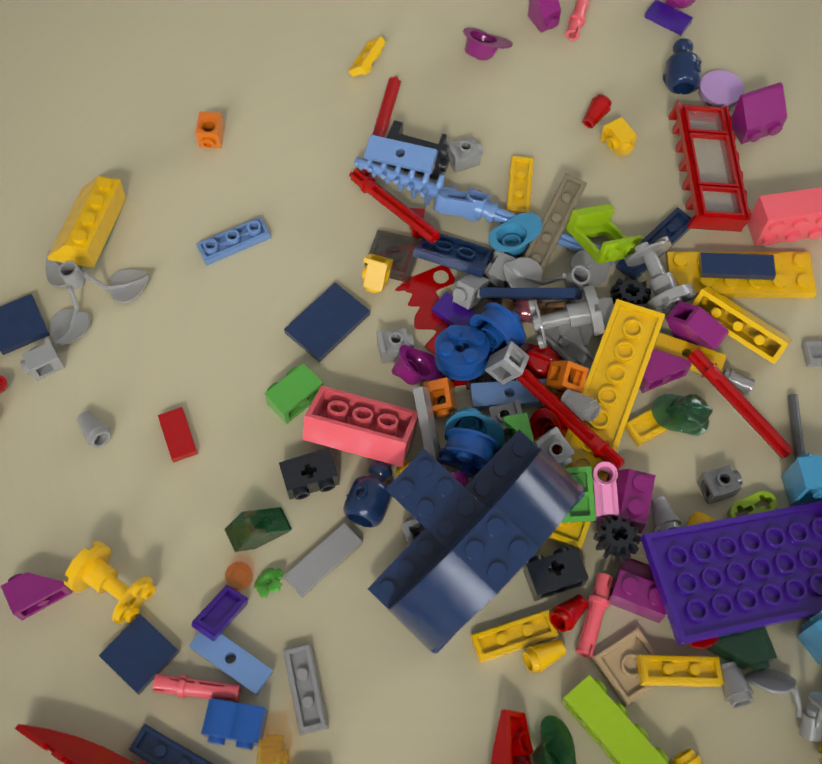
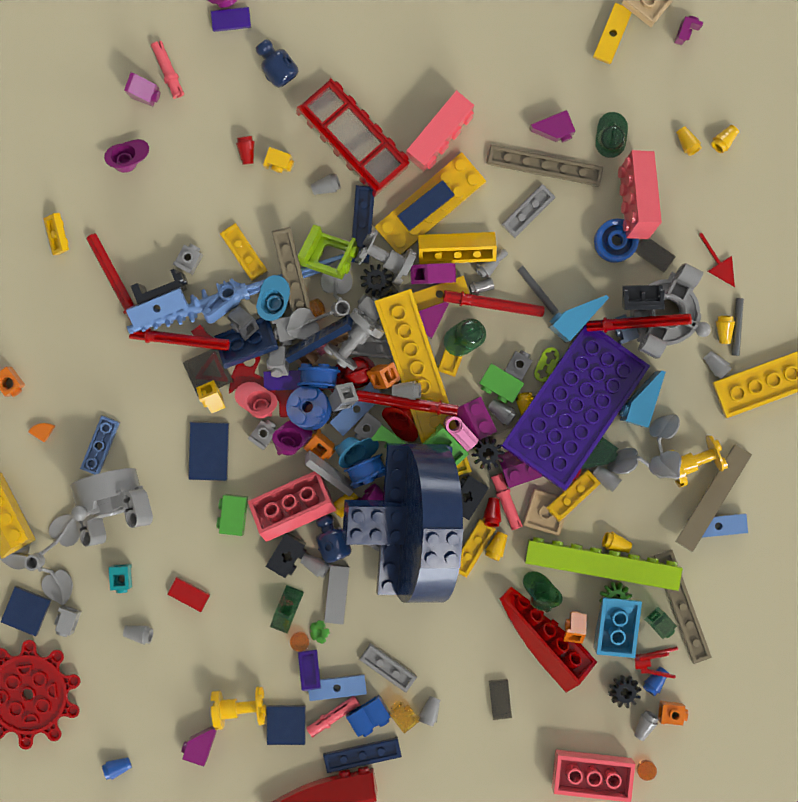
camera: 40 degrees left, 25 degrees up
(131, 362) = (115, 583): none -> teal brick
(193, 265) = (107, 496): none -> light grey piece
(197, 190) = (42, 431): none -> orange tile
(330, 511) = (315, 565): none -> light grey cone
(416, 308) = (256, 399): none -> coral piece
(467, 233) = (242, 322): none -> flat silver brick
(549, 272) = (317, 307): none -> clear orange tile
(554, 437) = (409, 426): light grey brick -> none
(649, 187) = (326, 185): none -> light grey cone
(686, 486) = (500, 383): none -> bright green brick
(721, 88) = (313, 57): lavender tile -> none
(758, 367) = (485, 269): none -> light grey cone
(759, 113) = (357, 67): magenta slope -> none

